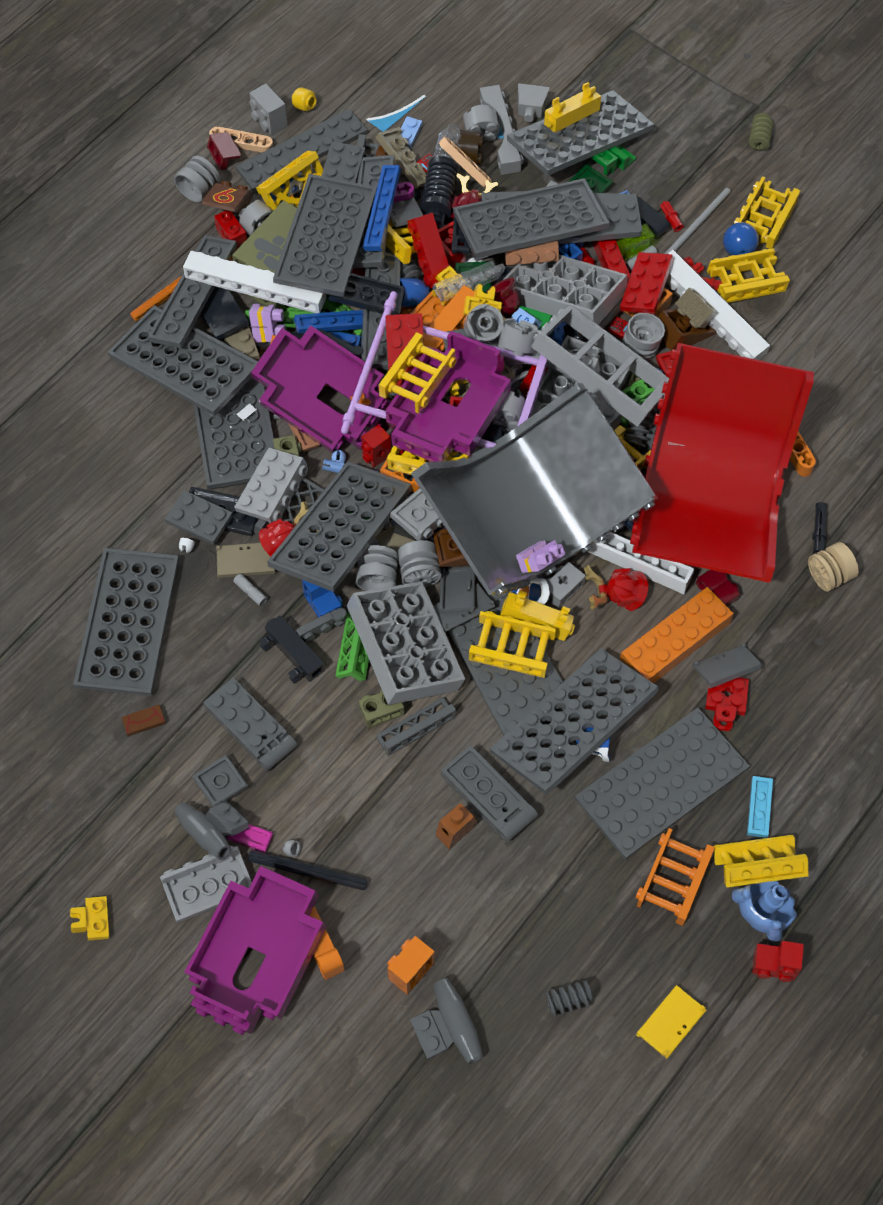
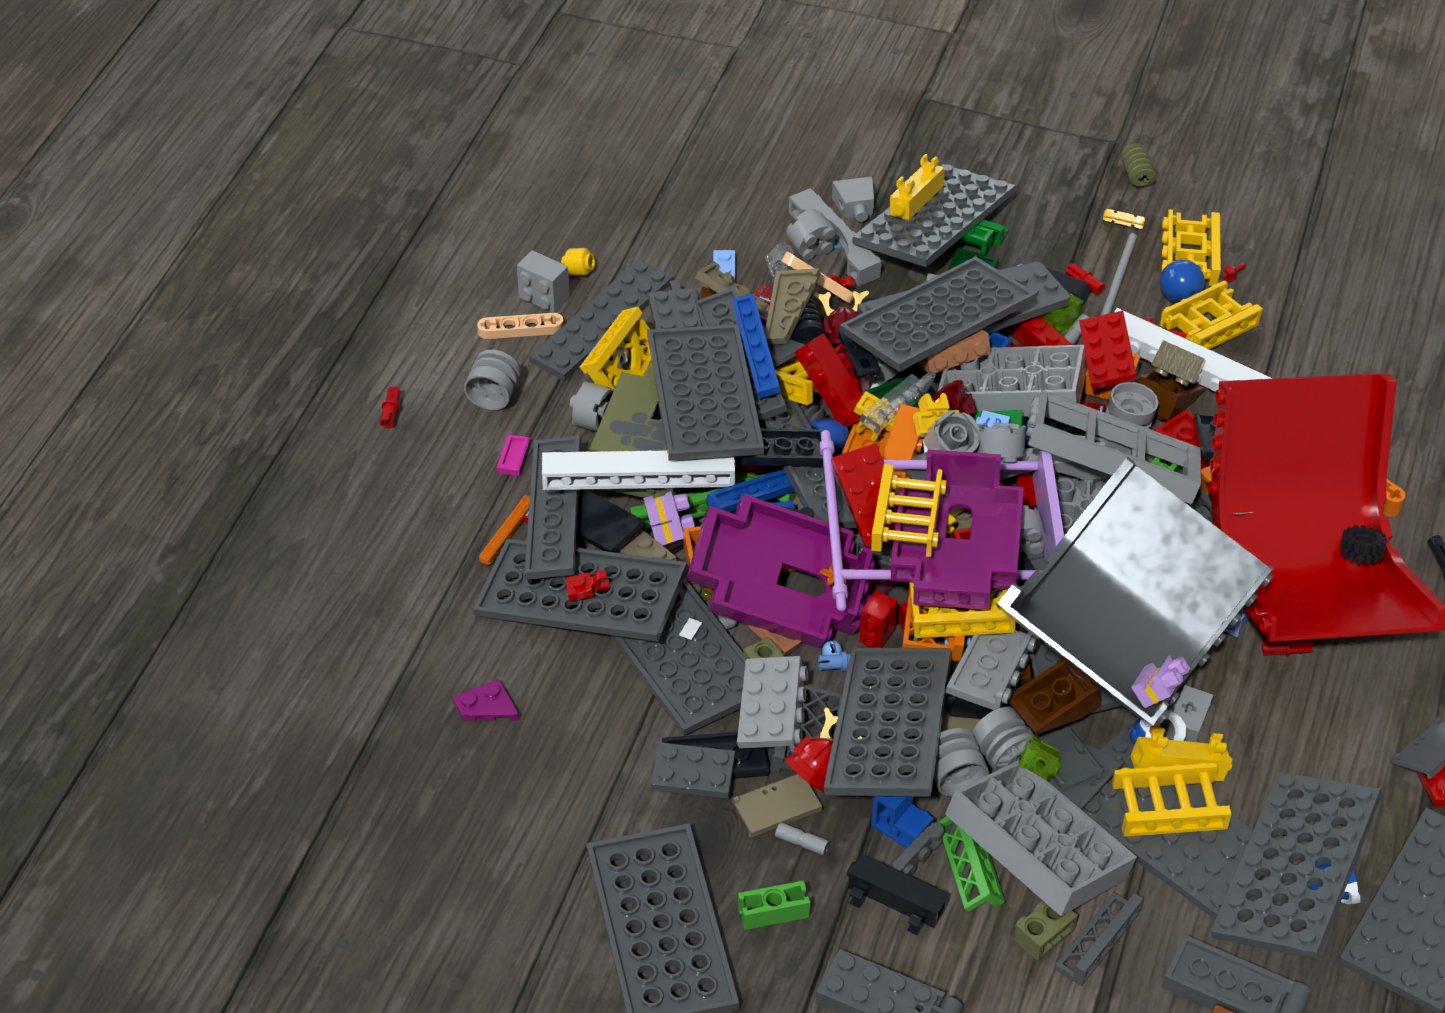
camera: 20 degrees left, 15 degrees down
(86, 424) = (485, 703): none -> magenta wing
(121, 179) = (390, 407): none -> red axle
(184, 358) = (583, 585): none -> red plate
(187, 544) = (691, 807): white hinge -> none
(190, 240) = (513, 455): none -> dark pink tile
(202, 625) = (756, 907): none -> bright green piece
(222, 149) = (504, 338): panel -> none
(228, 197) = (545, 389): reddish brown slope -> none
(230, 228) = (558, 423): red brick -> none
(385, 121) = (691, 261): dark azure sticker -> none
(427, 178) = (788, 301): none -> dark tan wing
(432, 586) = (1036, 751): none -> clear neon green brick
(471, 145) = (815, 254): dark brown brick -> none
(490, 171) = (845, 282): none -> red hand
(623, 587) = (1262, 696): red helmet -> none
(665, 572) = (1273, 660): white brick -> none
(677, 636) = (1359, 727): orange brick -> none
(719, 585) = (1371, 665): dark red brick -> none
(728, 173) = (1124, 218): none -> yellow axle
(758, 488) = (1363, 544): none -> black tyre
(785, 241) = (1231, 274): none -> red hand

